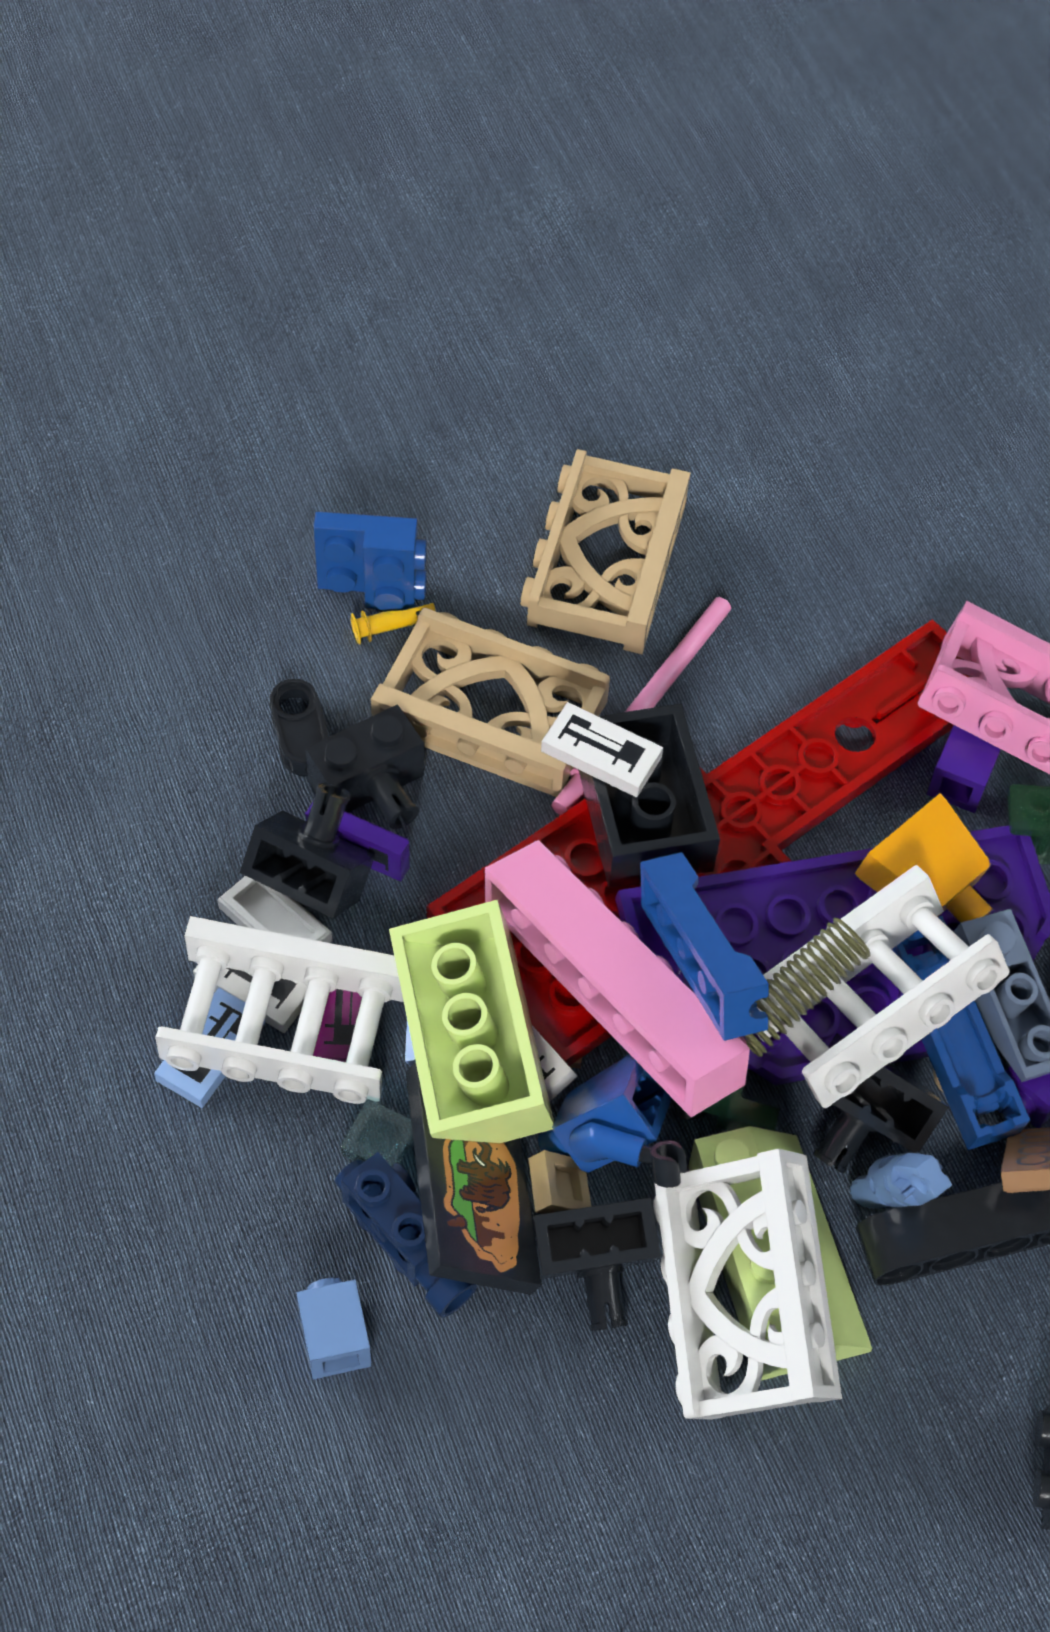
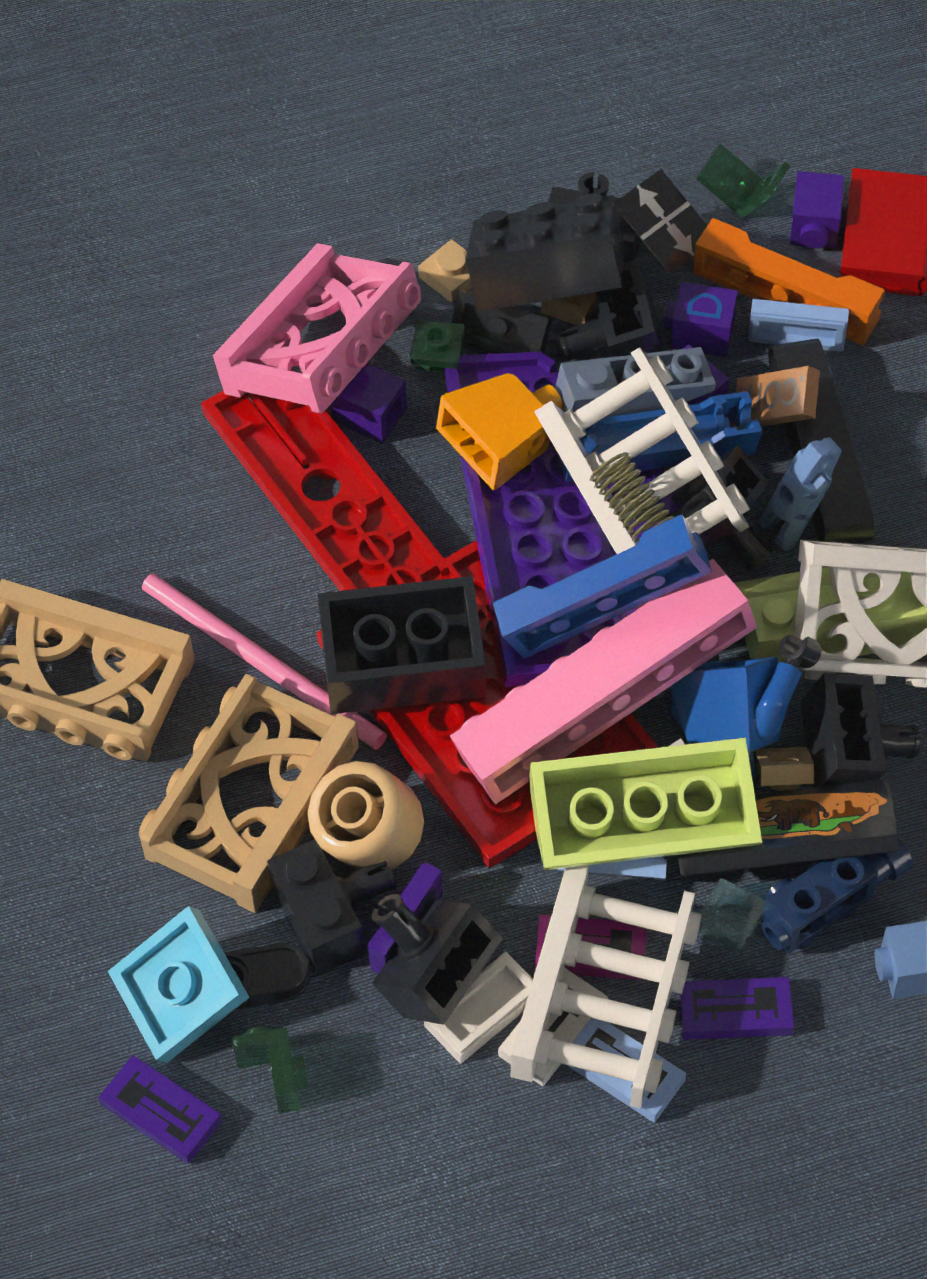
camera: 80 degrees left, 0 degrees up
(166, 666) = (160, 1109): none -> dark purple tile
(202, 749) = (272, 1046): none -> clear green bracket
(278, 657) = (178, 984): none -> medium azure plate
(278, 1150) = (736, 1008): none -> dark purple tile
(371, 557) = (73, 881): blue plate -> none
(384, 621) = (132, 909): yellow piece -> none
(453, 786) = (365, 816): none -> tan head
(602, 749) = (370, 660): white tile -> none

